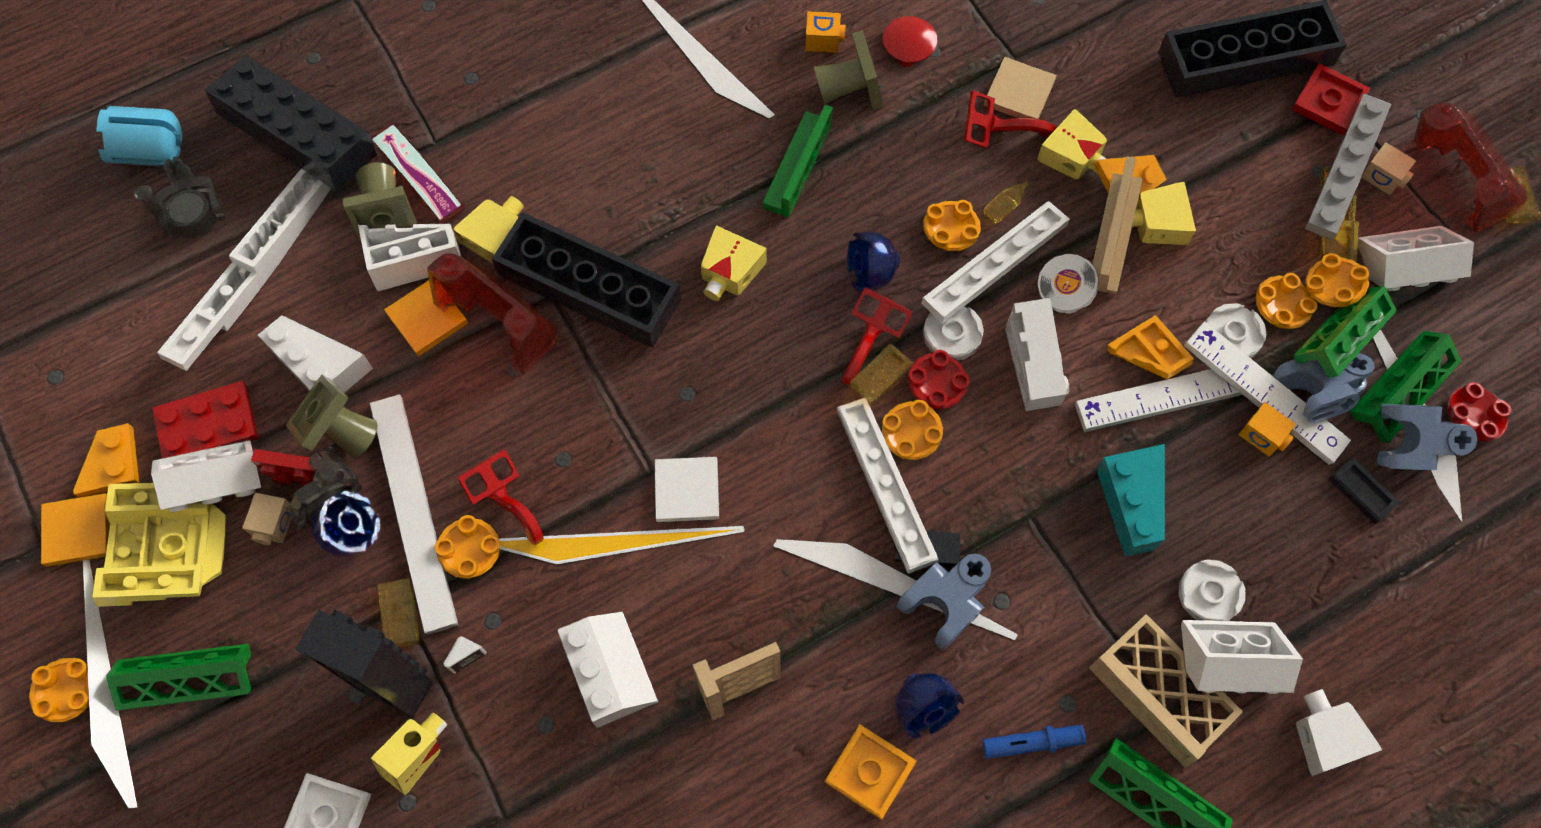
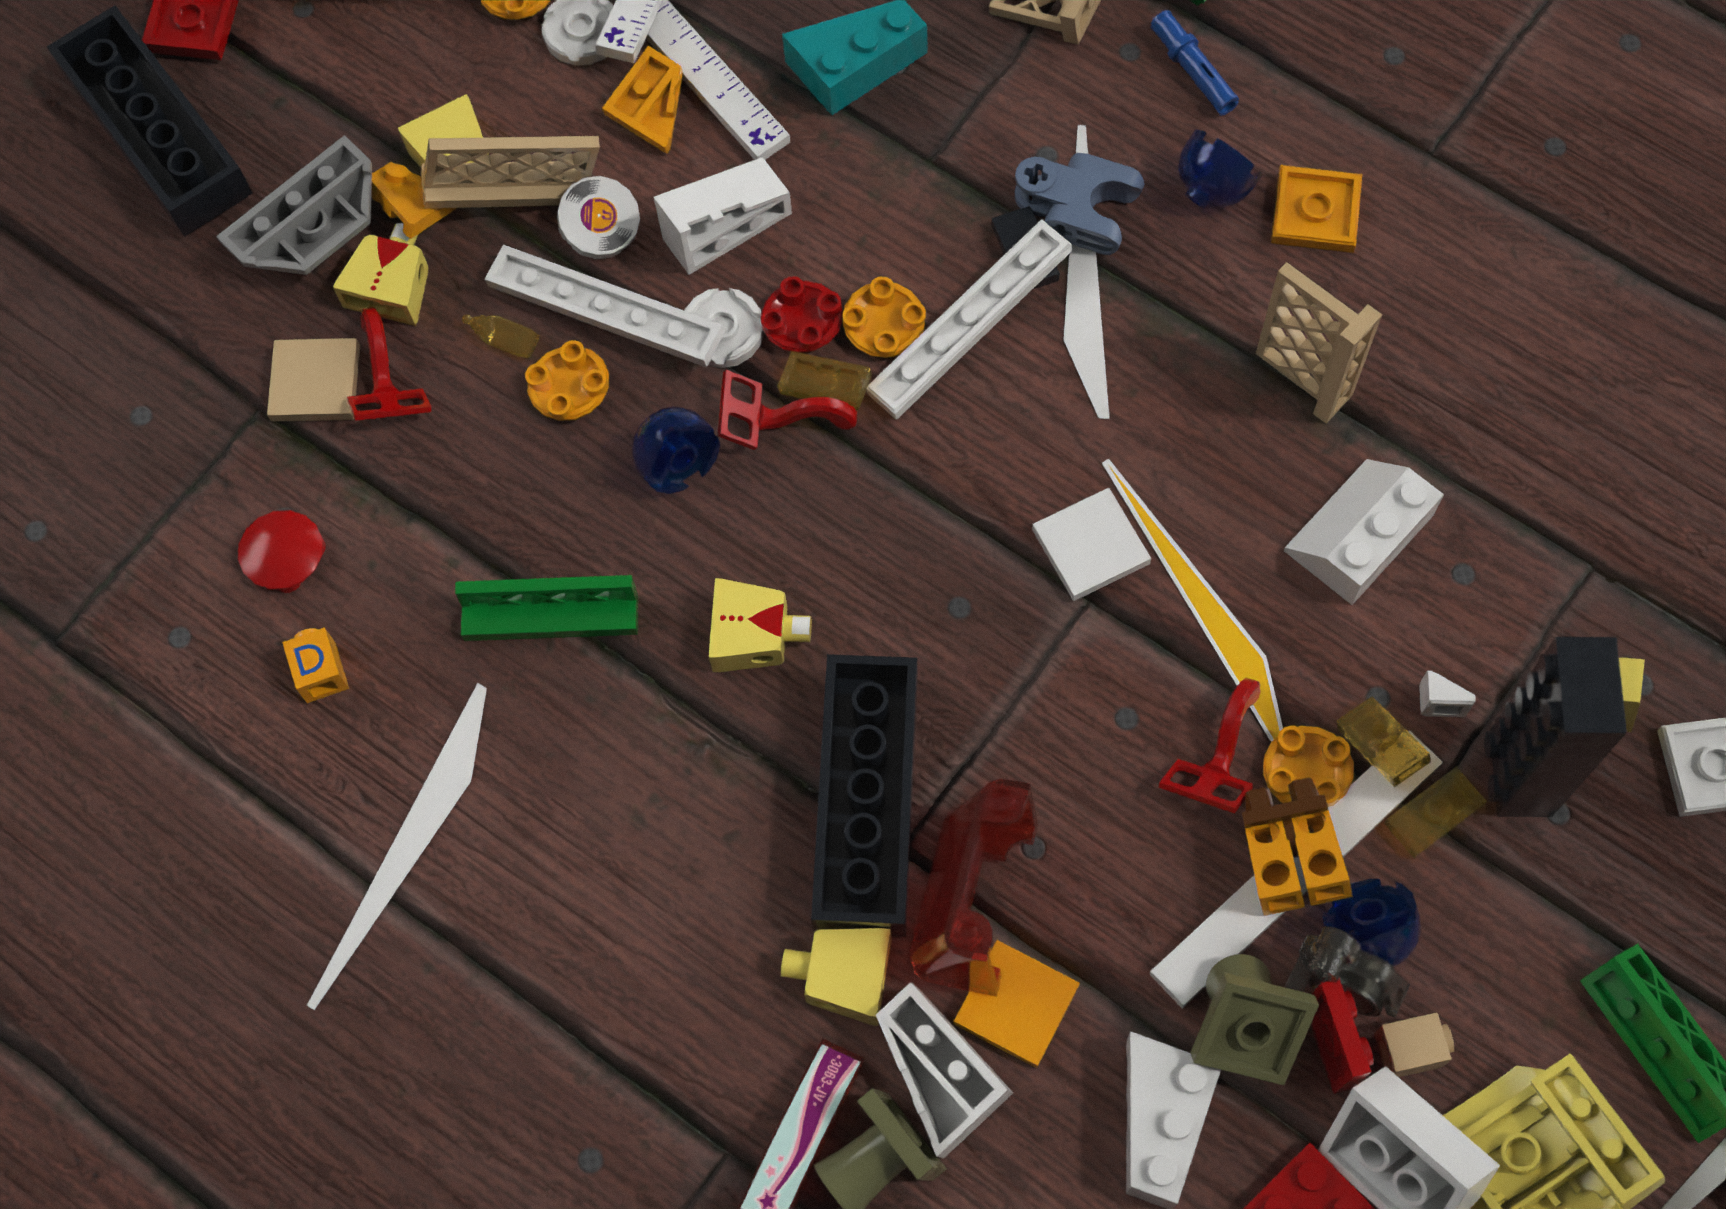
camera: 110 degrees left, 0 degrees up
(415, 500) = (1292, 831): none -> light orange hips
(456, 599) = (1383, 741): none -> clear yellow plate
(850, 75) = (380, 577): olive plant -> none
(1135, 108) = (306, 214): none -> light grey wedge

